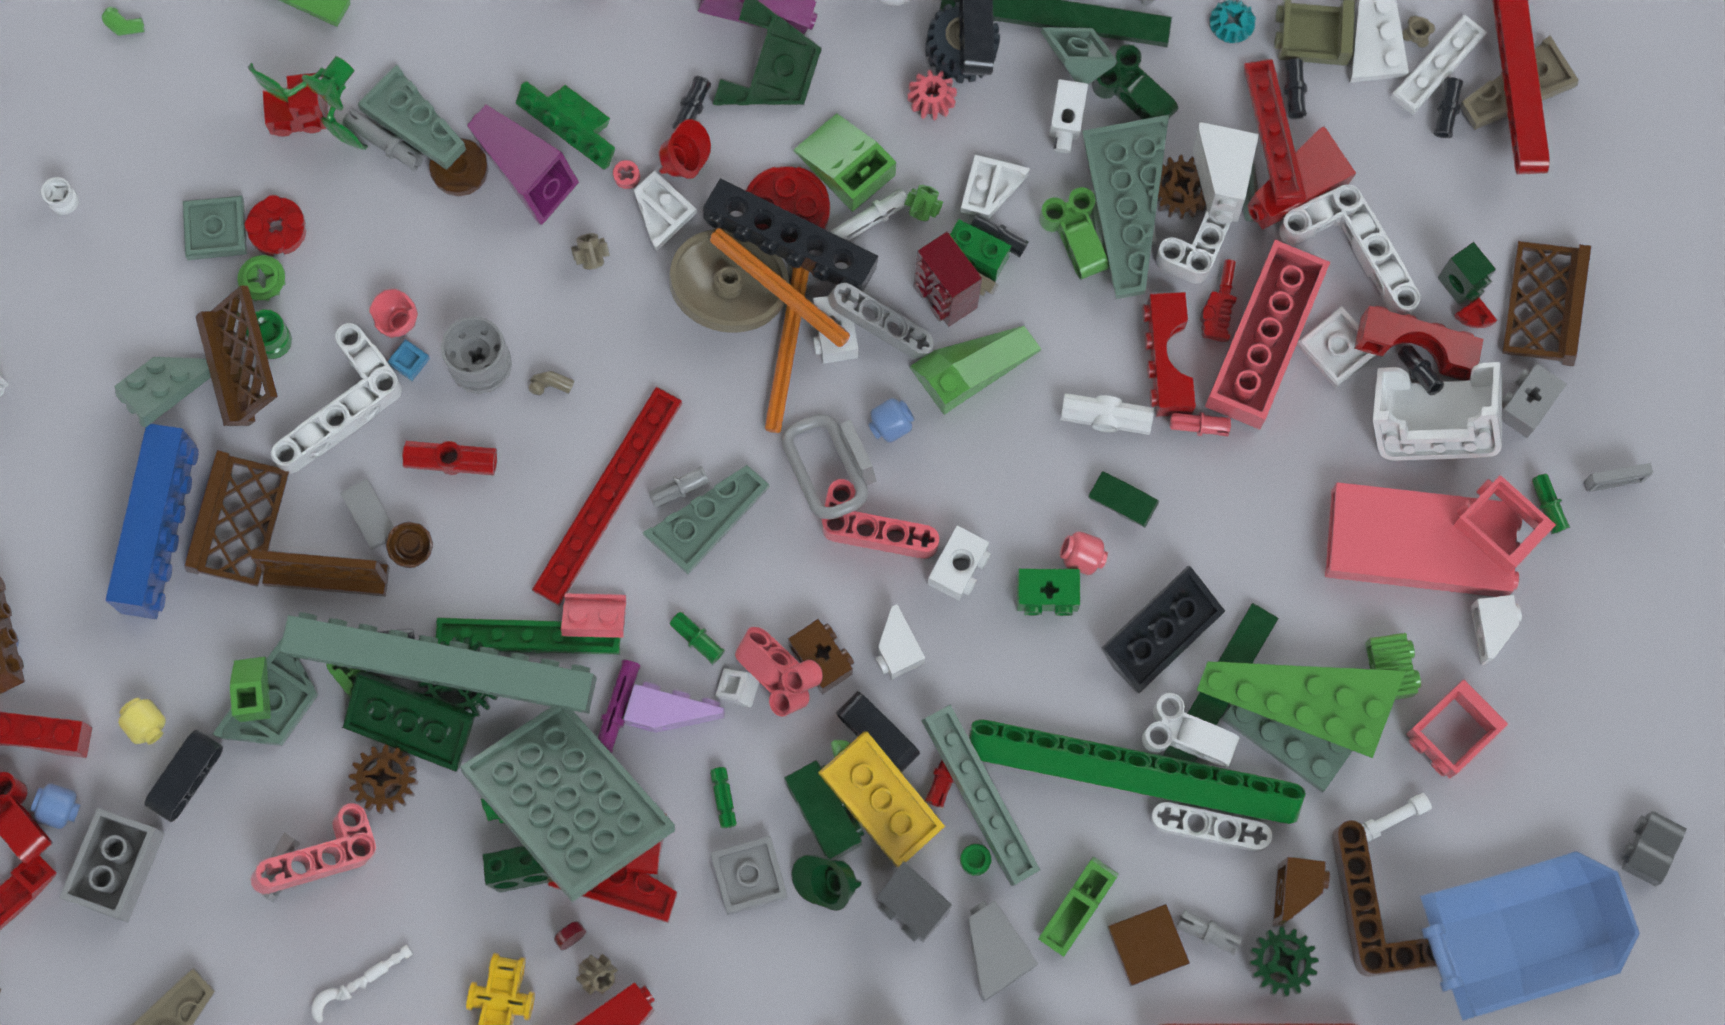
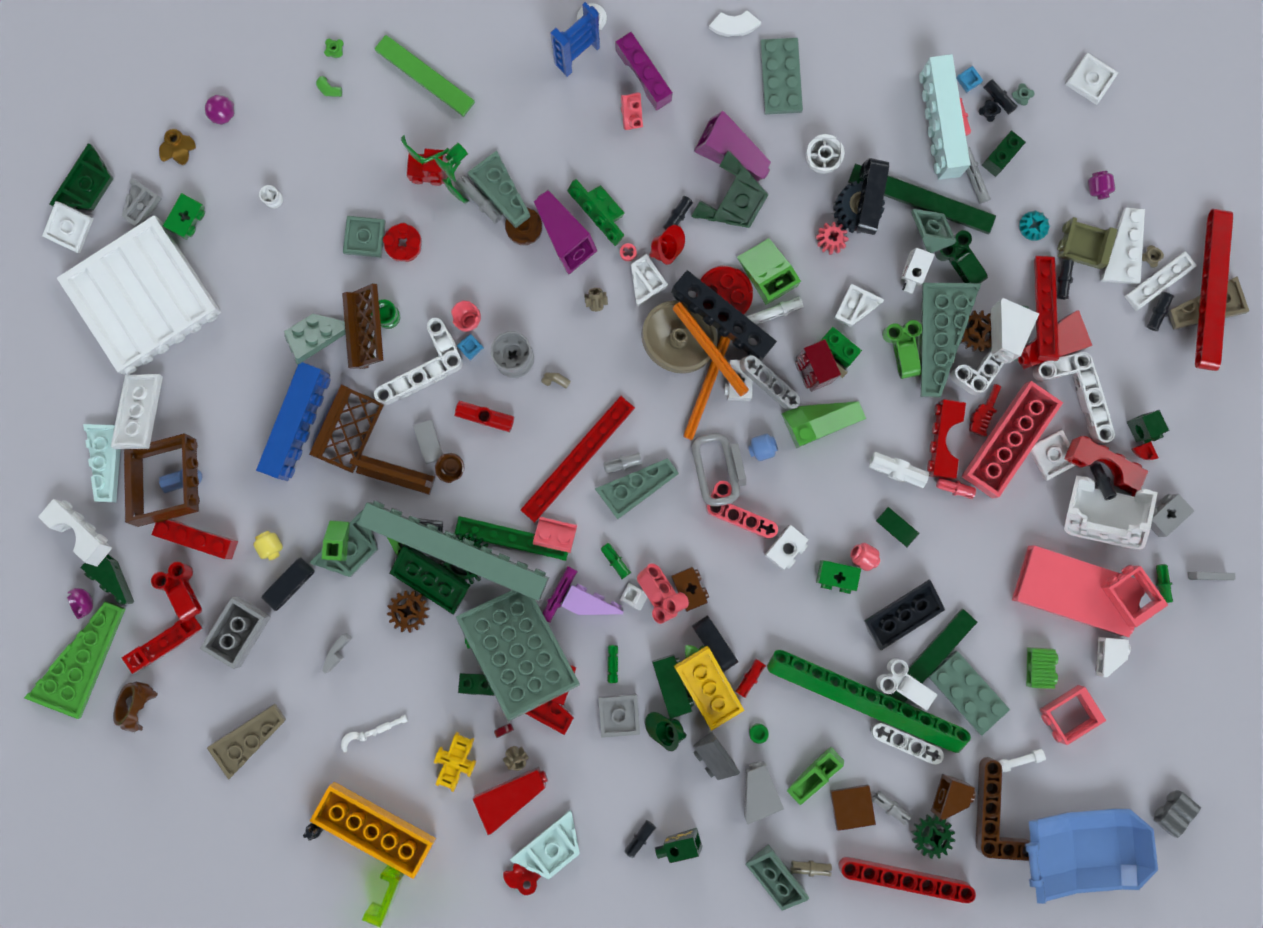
camera: 10 degrees right, 10 degrees up
(55, 806) = (207, 587): medium blue head -> none
(270, 267) = (381, 270): bright green gear -> none
(312, 856) = (356, 654): coral beam -> none
(898, 647) = (738, 592): white slope -> none
(923, 203) = (812, 309): bright green gear -> none
(980, 795) = (770, 697): sand green plate -> none
(1017, 244) = (856, 339): black pin -> none
(1326, 702) = (995, 683): bright green wing -> none
(1573, 305) = (1210, 458): reddish brown fence -> none

